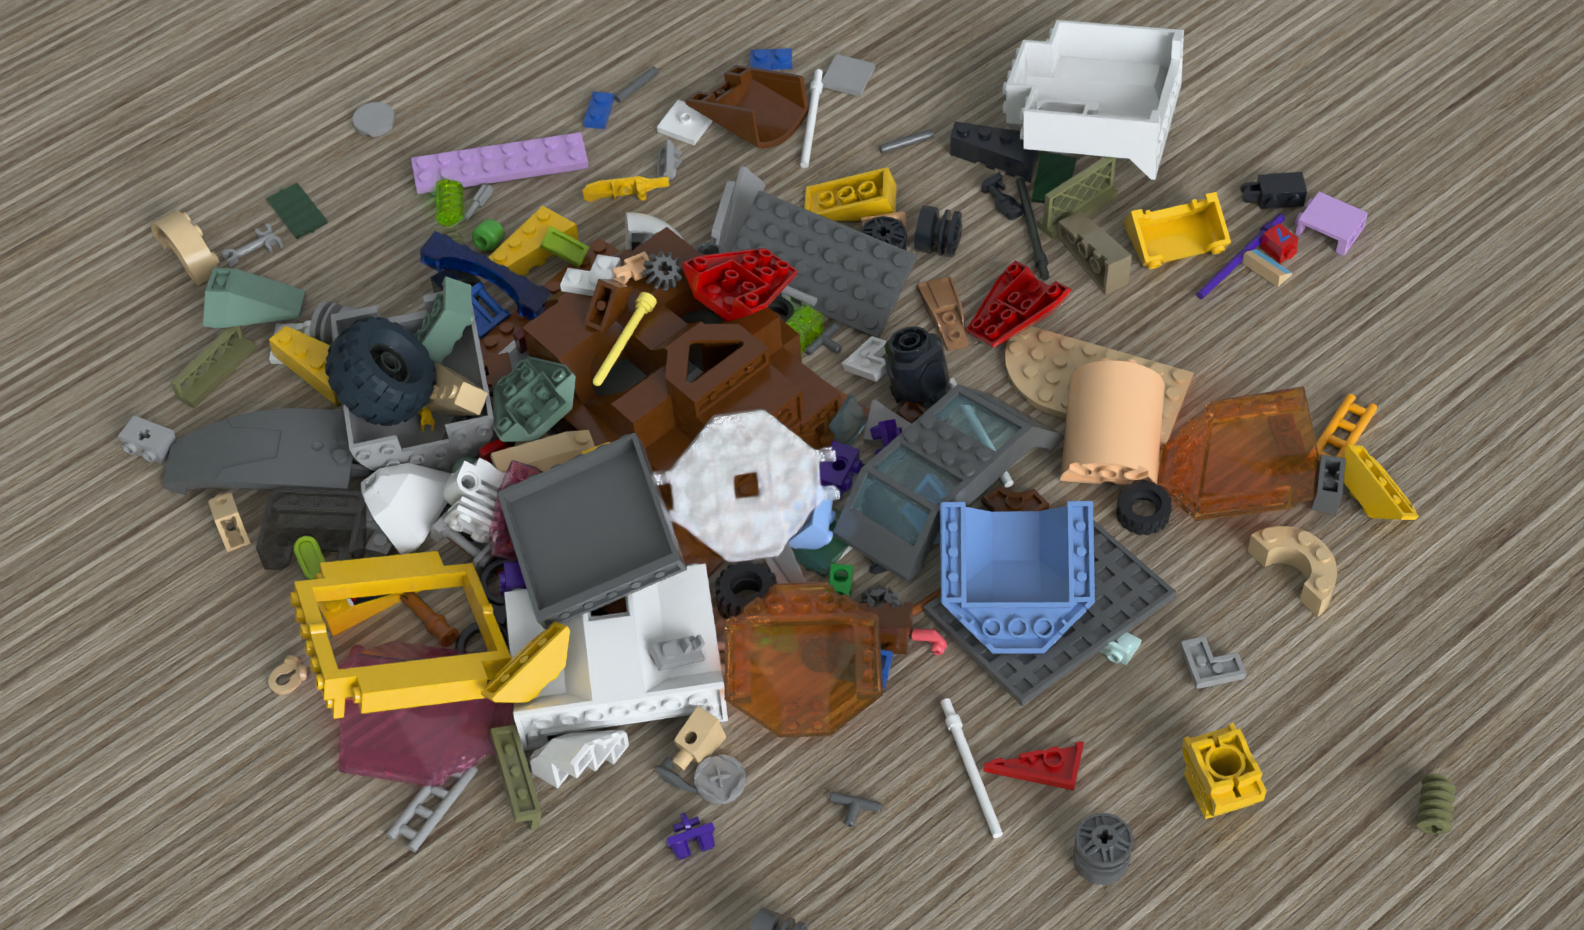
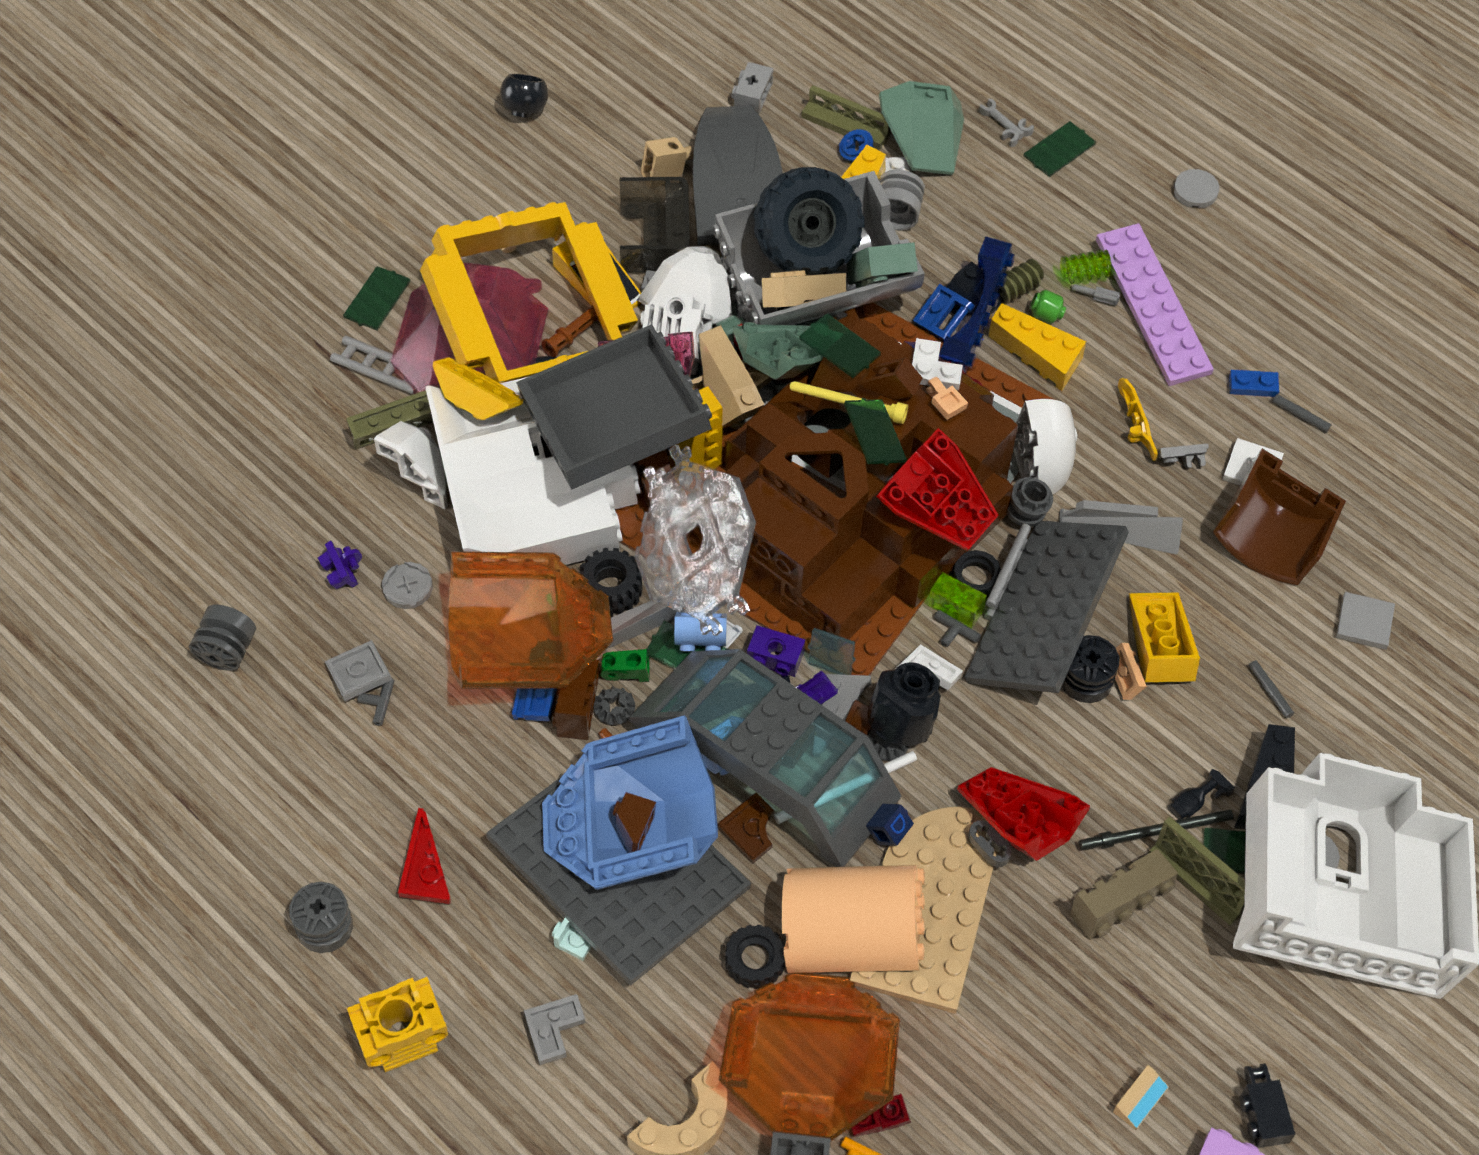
camera: 80 degrees right, 5 degrees up
(98, 641) = (524, 94): none -> black wheel
(187, 243) = (985, 60): tan brick -> none
(245, 352) = (848, 143): none -> blue gear
(309, 556) = (631, 231): lime tile -> none
(337, 805) = (376, 298): none -> clear green piece
(553, 345) = (840, 345): none -> clear green piece
(564, 246) = (1033, 369): lime tile -> none
(667, 265) = (930, 413): dark grey gear -> none
(670, 315) = (875, 431): none -> clear green piece
(672, 778) = (412, 537): dark grey bar -> none
(677, 652) = (503, 509): light grey plate -> none
(698, 738) = (435, 554): tan torso -> none
(771, 59) = (1368, 533): blue plate -> none
(816, 89) = (1335, 588): white bar -> none
(820, 822) = (358, 670): none -> light grey tile
(933, 637) = (573, 754): coral arm -> none
(938, 231) = (1118, 721): black wheel -> none
(945, 311) = (1017, 744): medium nougat piece -> none
(955, 725) = (472, 782): white bar -> none
(1023, 397) = (889, 824): none -> dark blue brick
(1024, 574) = (634, 820): none -> reddish brown slope
(1048, 331) = (992, 841): none -> dark grey beam
(1178, 231) = (1170, 984): yellow windscreen -> none
(1238, 258) = (1200, 1098): dark purple bar -> none
(1279, 243) = (1176, 1110): red brick -> none

